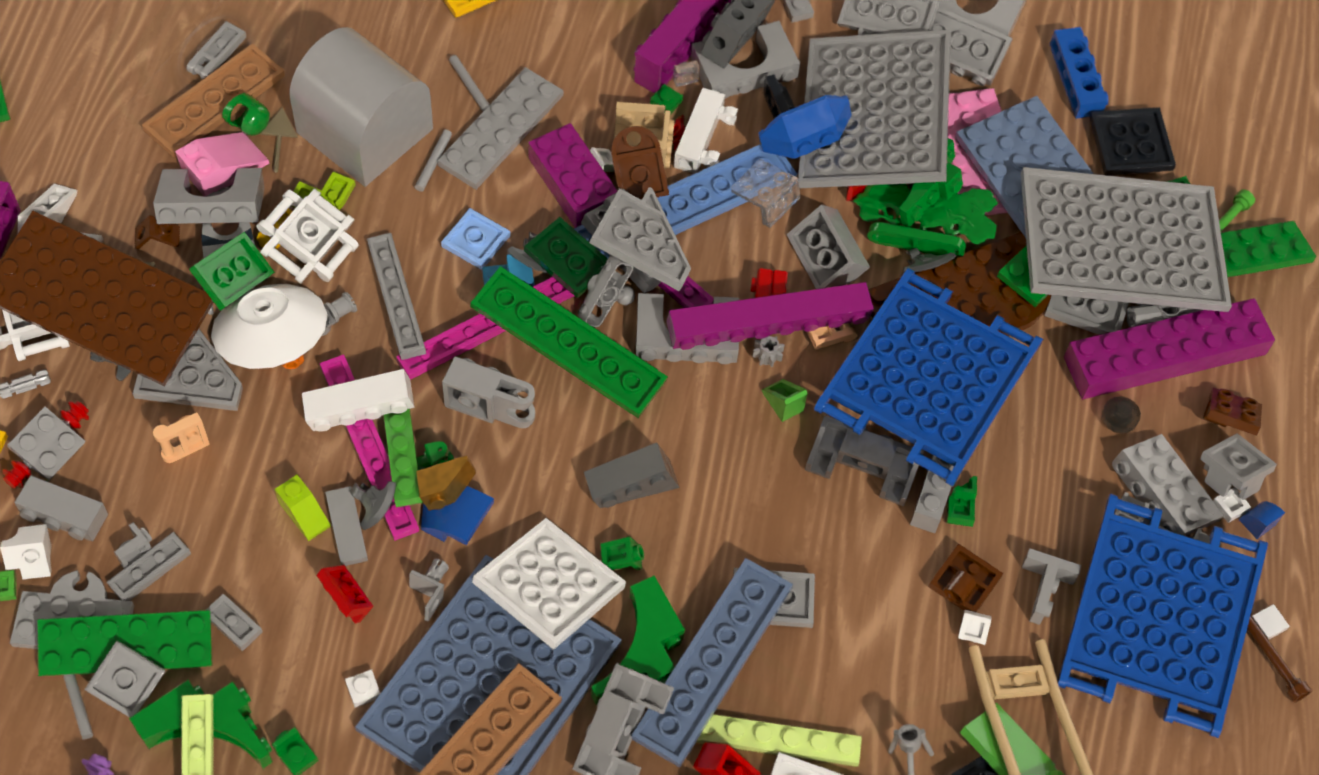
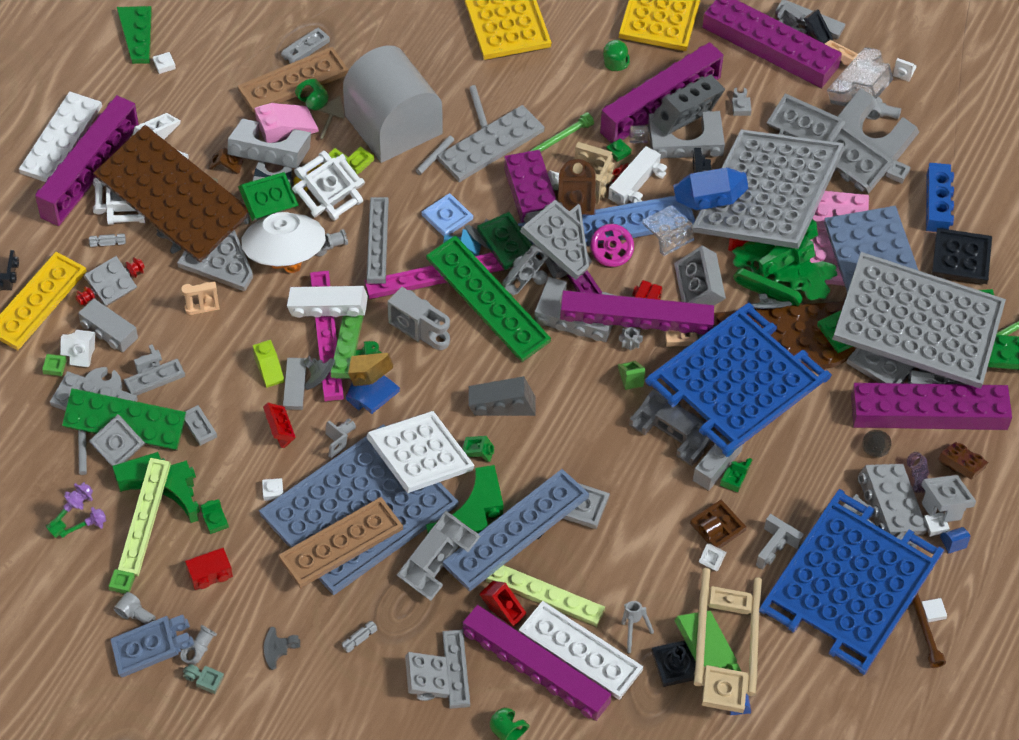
camera: 20 degrees right, 5 degrees down
(30, 114) = (164, 62): none -> white plate
(611, 71) = (585, 120): none -> bright green piece
(723, 226) = (598, 253): none -> dark pink plate
(1018, 50) = (898, 171): none -> light grey plate
(1186, 440) = (919, 471): none -> clear purple connector

